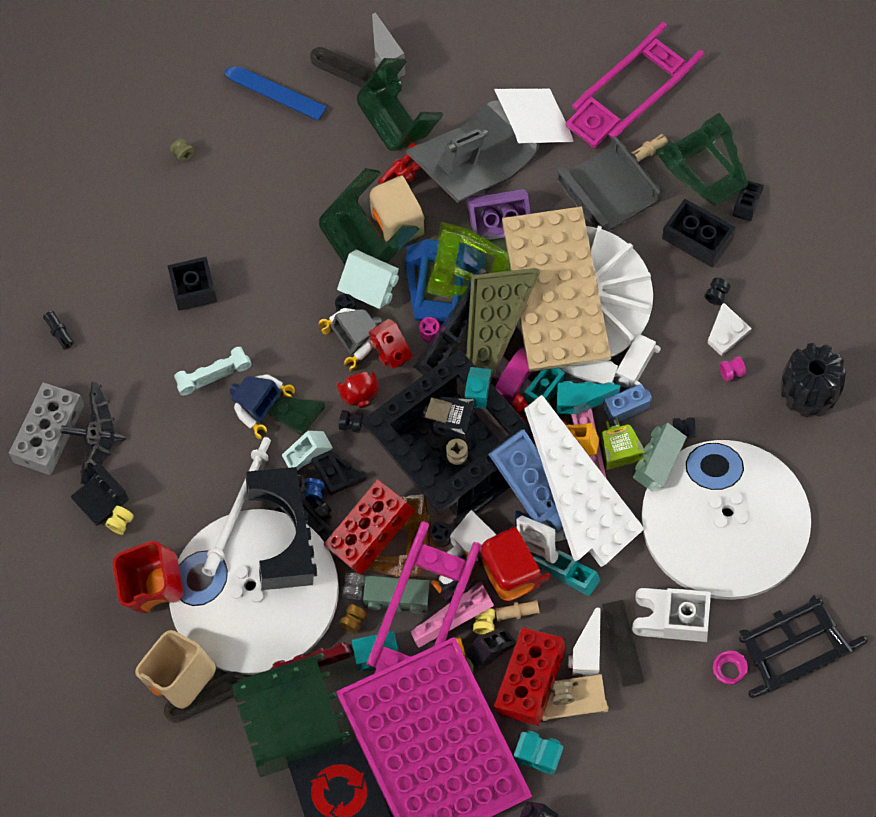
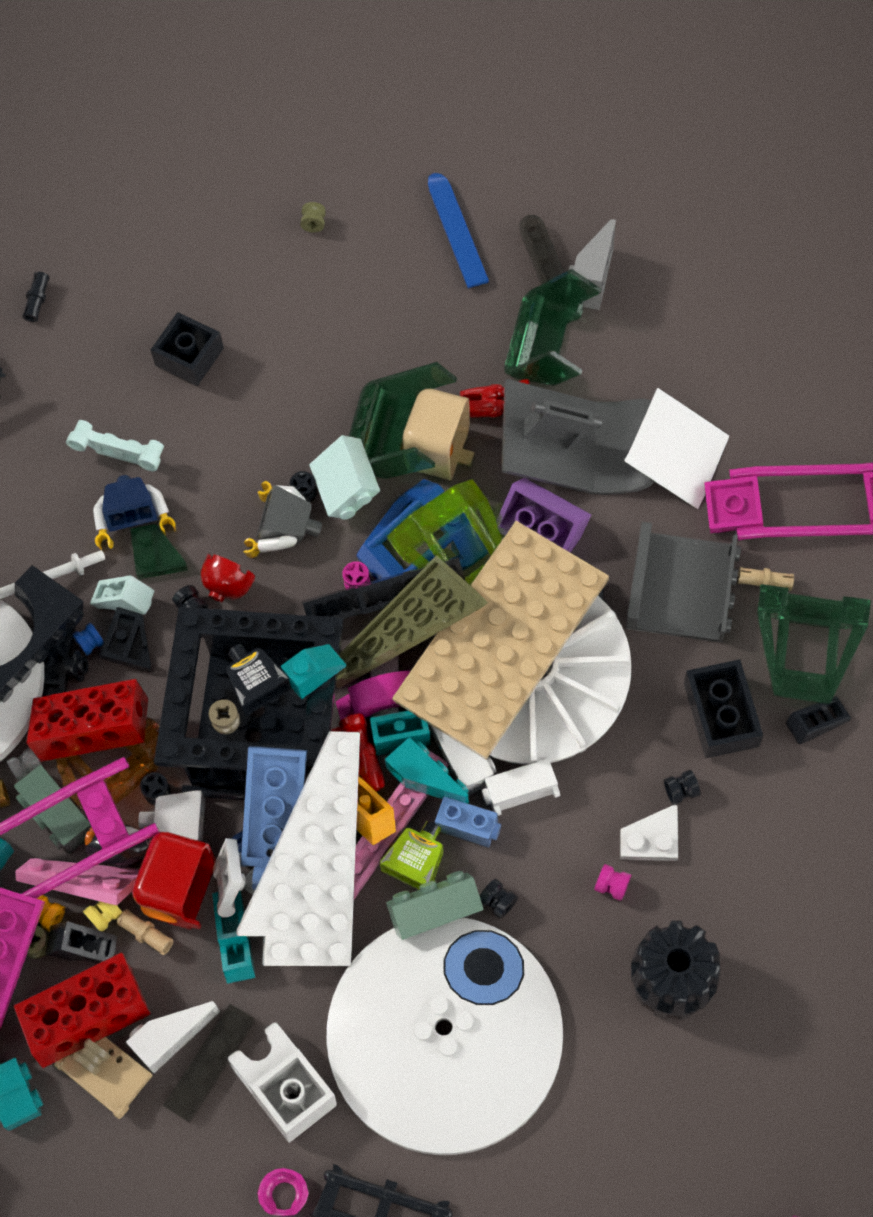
camera: 45 degrees right, 0 degrees up
(390, 344) = (298, 558): red brick -> none
(438, 410) = (242, 658): dark tan slope -> none

